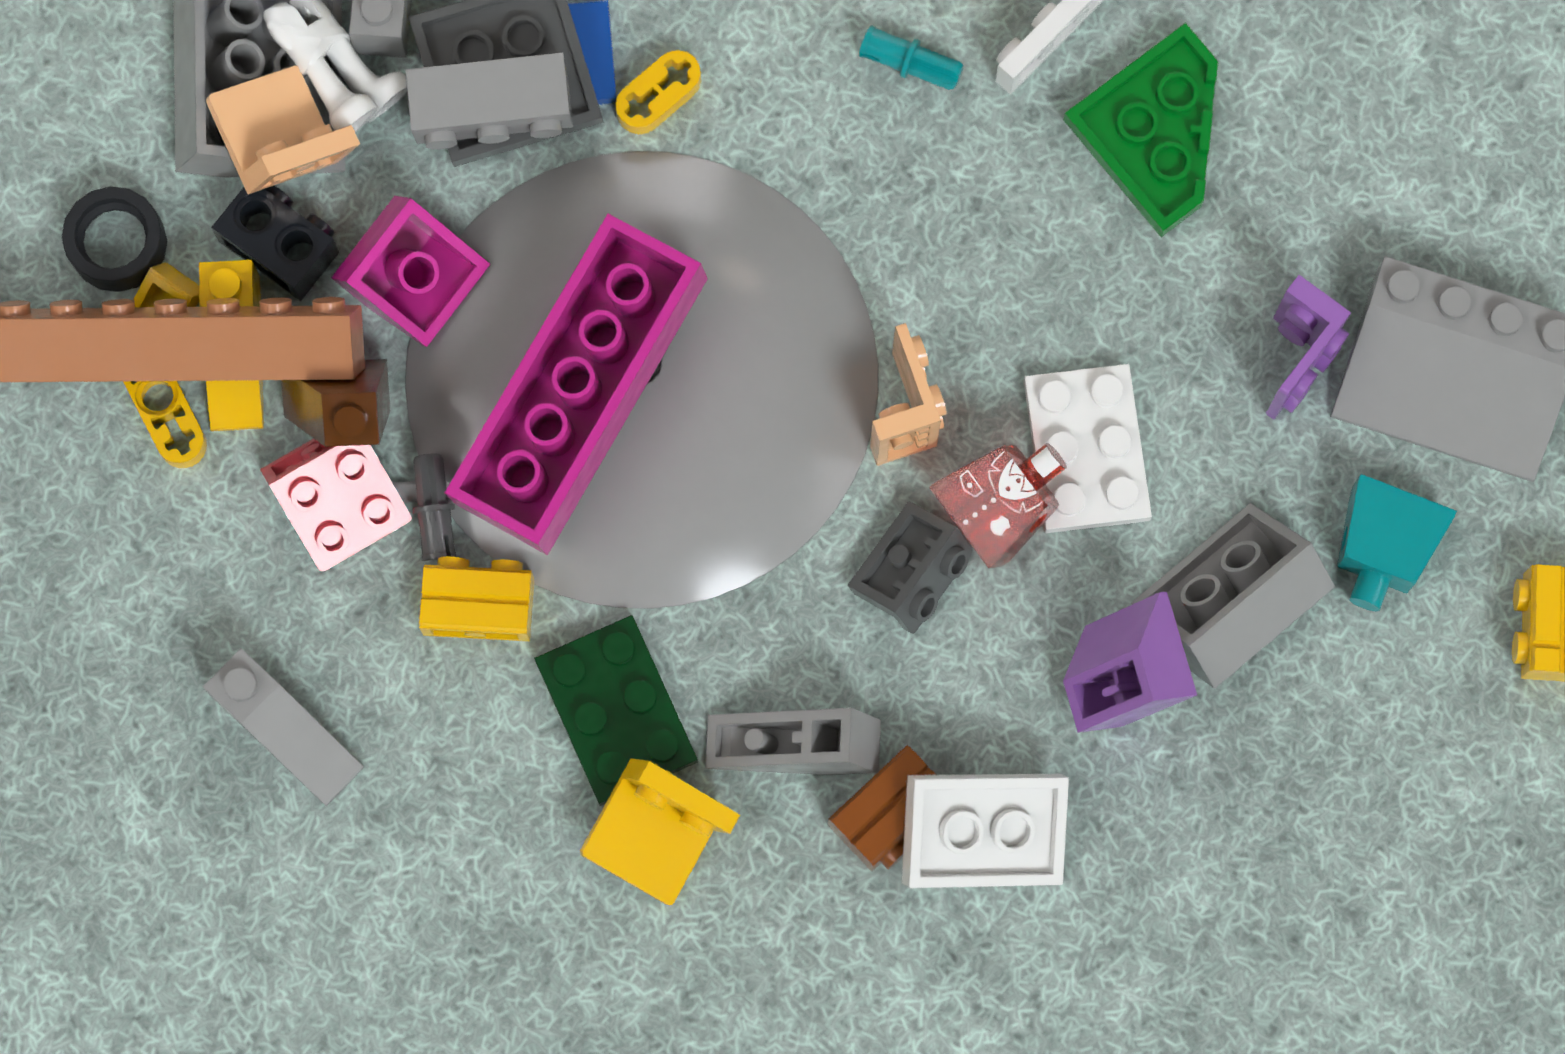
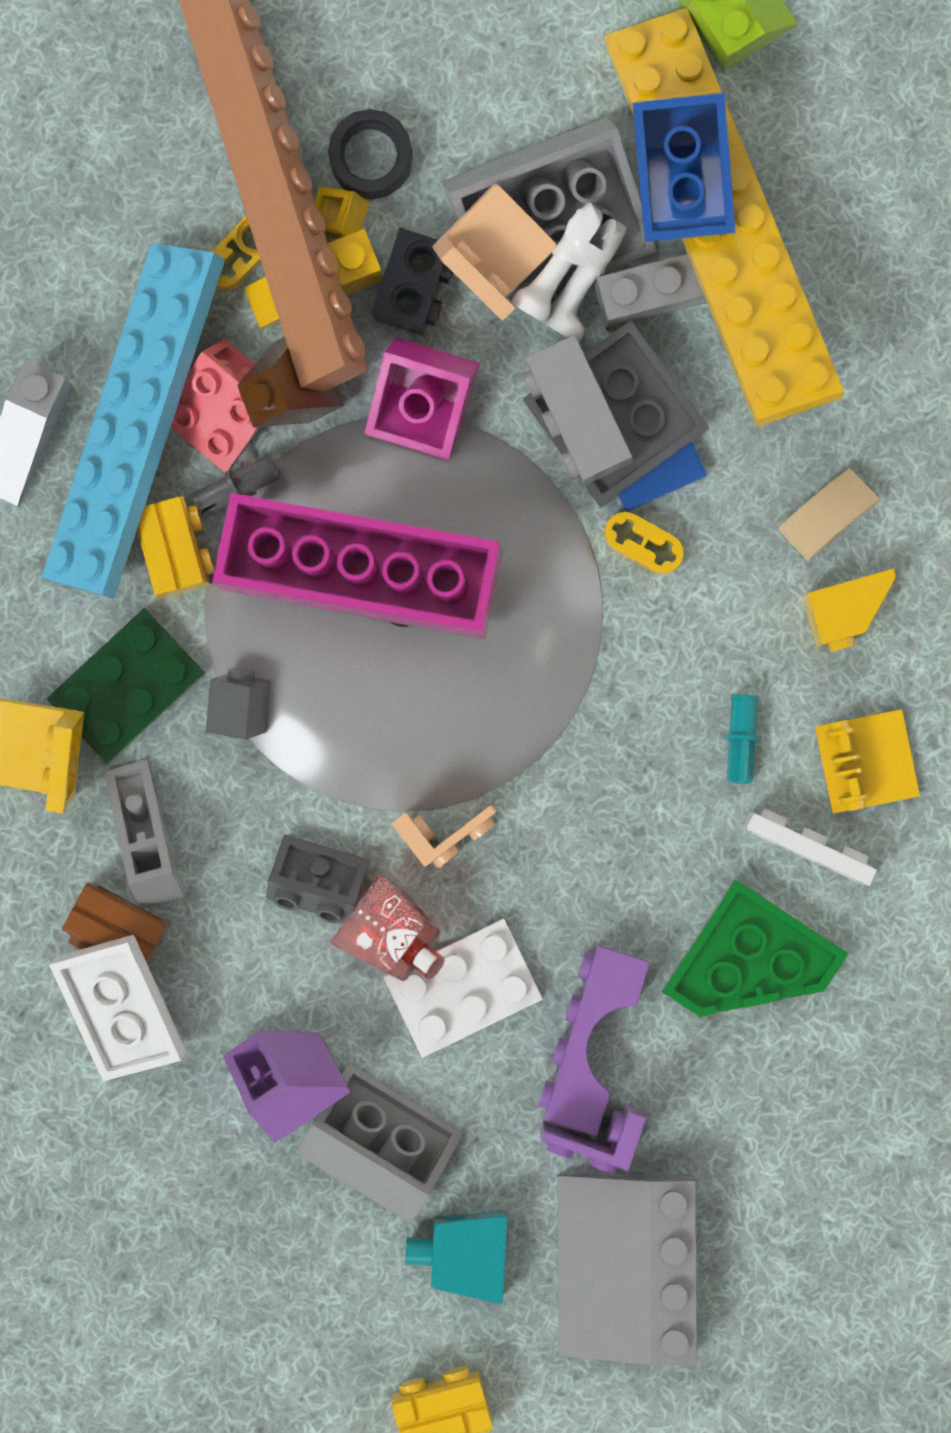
camera: 75 degrees right, 10 degrees up
(316, 595) = (133, 419): none -> medium azure plate
(683, 582) = (238, 704): none -> dark grey brick
(1243, 359) = (577, 1095): none -> medium lavender arch

